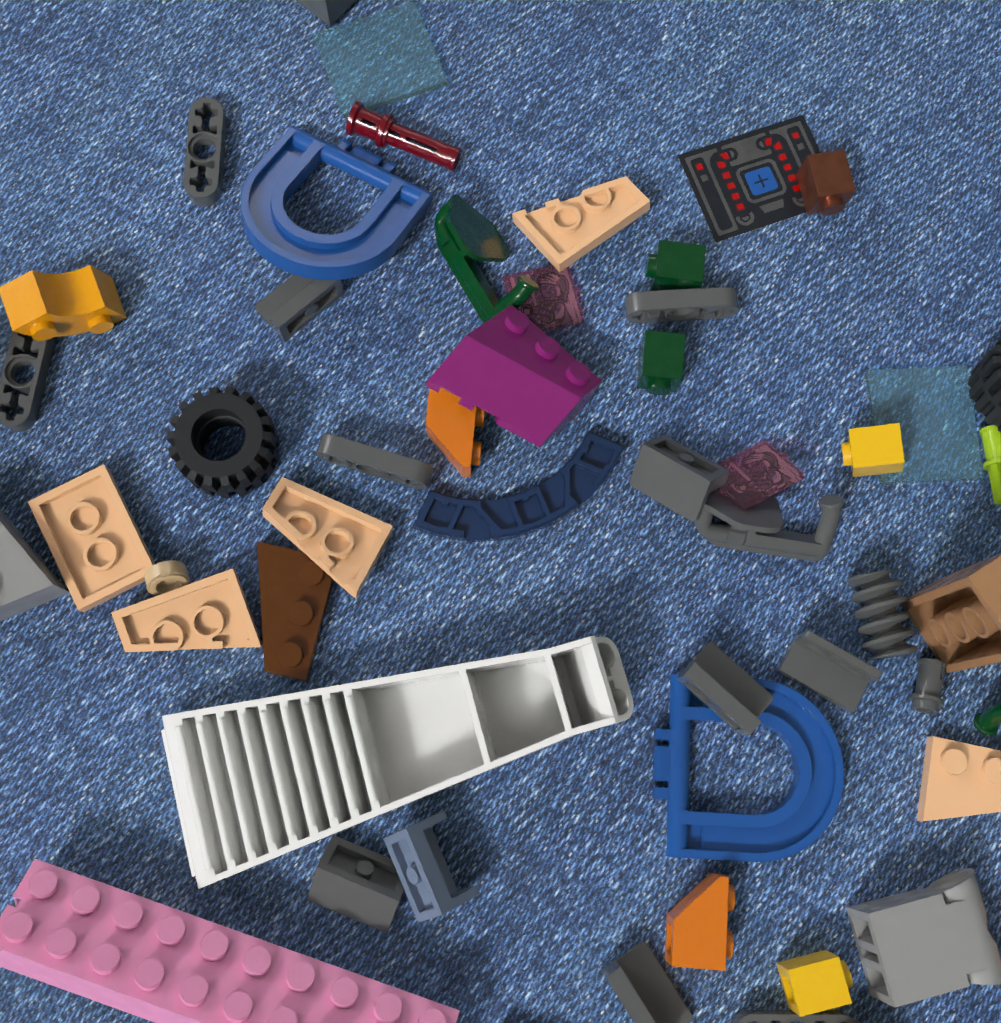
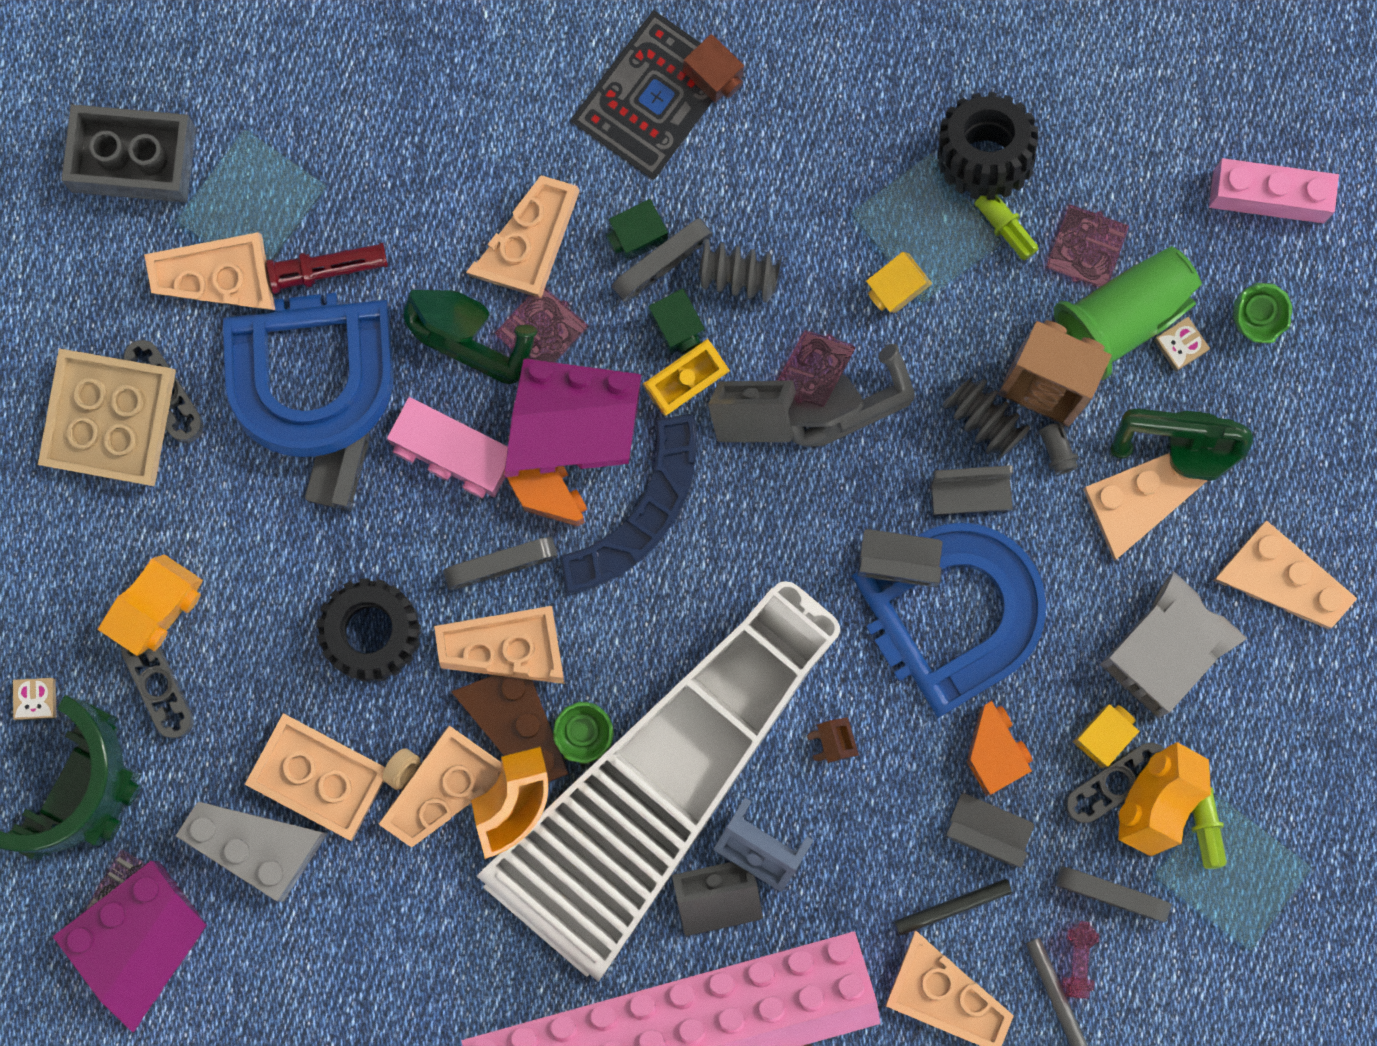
camera: 30 degrees left, 5 degrees up
(143, 137) = (106, 417): none -> tan plate
(233, 674) = (513, 804): none -> light orange brick
(311, 85) = (214, 271): none -> light nougat wing
(342, 653) = (583, 732): none -> bright green hair
(397, 338) = (449, 448): none -> bright pink brick
(561, 813) = (836, 740): none -> reddish brown tile
(637, 410) = (685, 377): none -> yellow brick
(741, 354) = (738, 271): none -> dark grey piece

